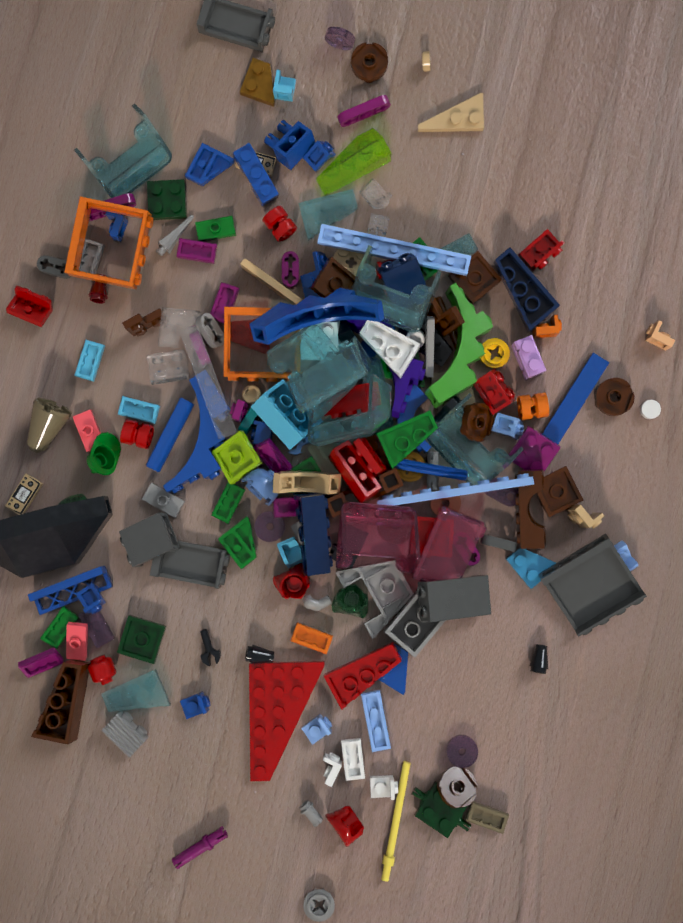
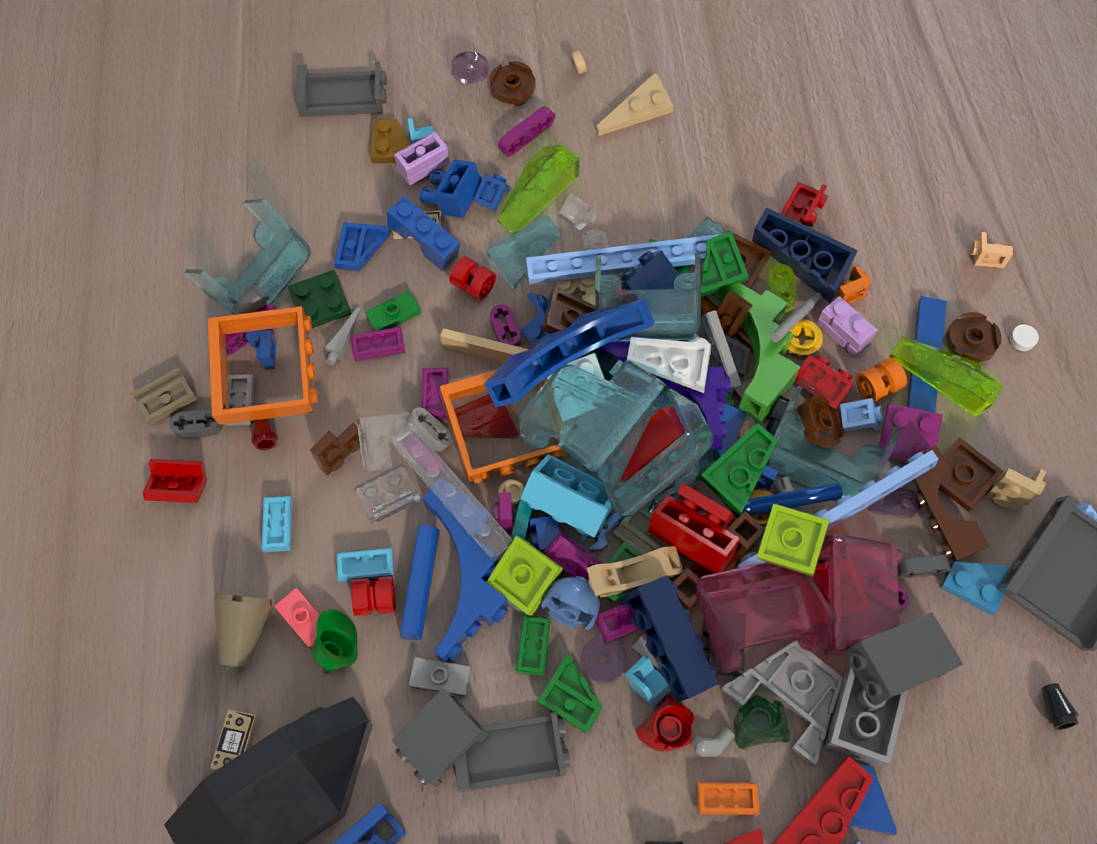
camera: 20 degrees left, 20 degrees down
(38, 238) = (164, 396): none -> dark tan plate
(114, 189) = (250, 301): none -> dark grey cone
(276, 109) = (421, 158): none -> lavender brick
(416, 499) = (793, 539): none -> lime plate
(458, 281) = (722, 264): none -> green wing
(494, 339) = (797, 316): none -> light grey bar
(499, 308) = (783, 285): none -> clear neon green plate
(585, 420) = (954, 376): none -> clear neon green wedge

